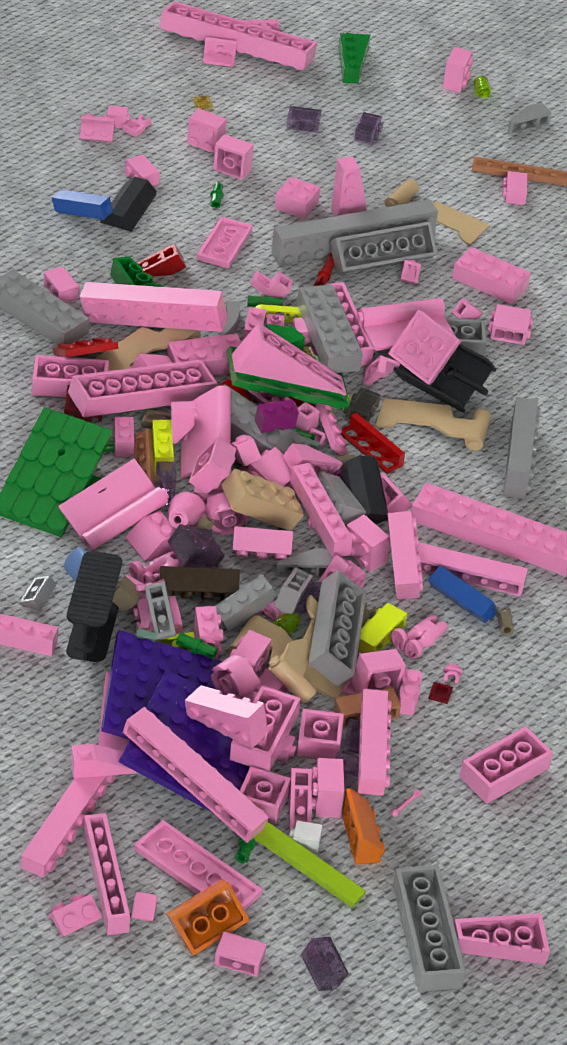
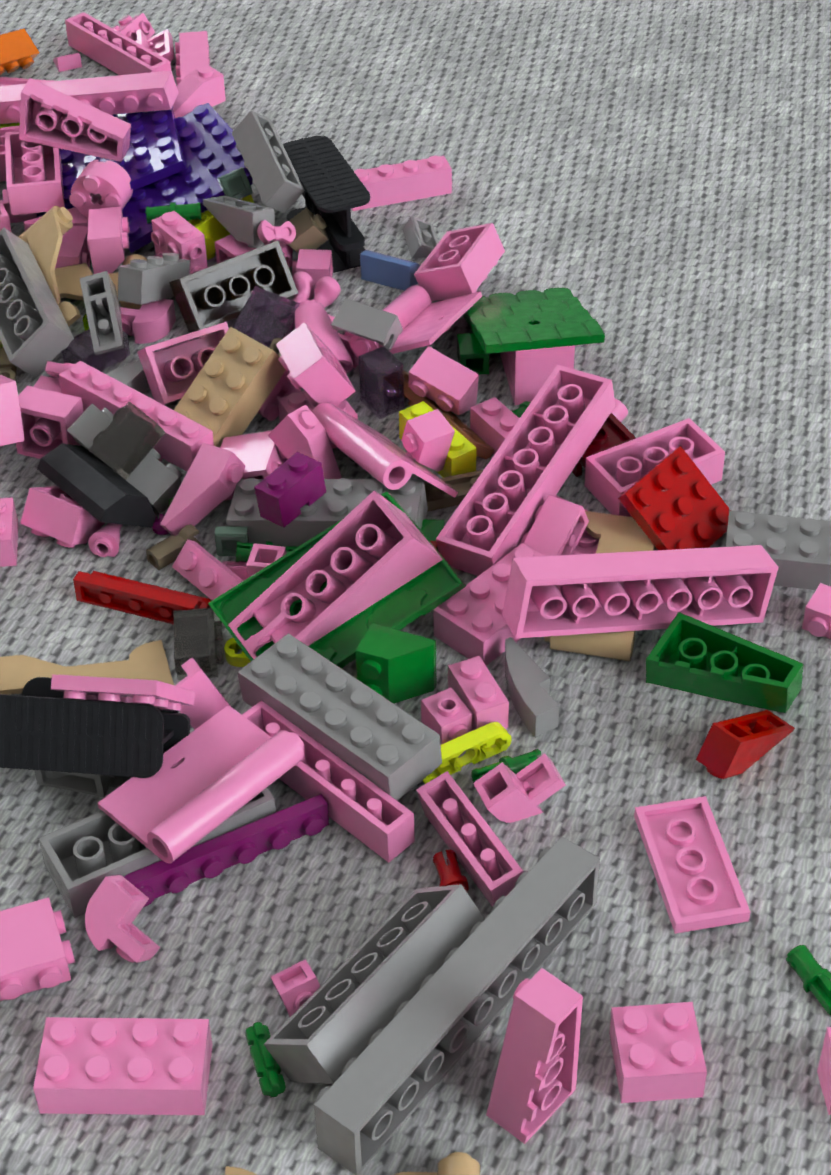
camera: 155 degrees right, 0 degrees up
(46, 538) = (460, 262): none -> bright pink brick
(67, 875) = (160, 43): none -> bright pink bracket
(124, 610) = (267, 162): none -> light grey brick
(140, 451) = (444, 381): none -> bright pink slope
(157, 485) = (367, 323): none -> light grey hinge
(307, 269) = (470, 837): none -> bright pink brick
(341, 478) = (126, 440): none -> clear smoke brick
(436, 262) = (264, 1063): none -> green axle

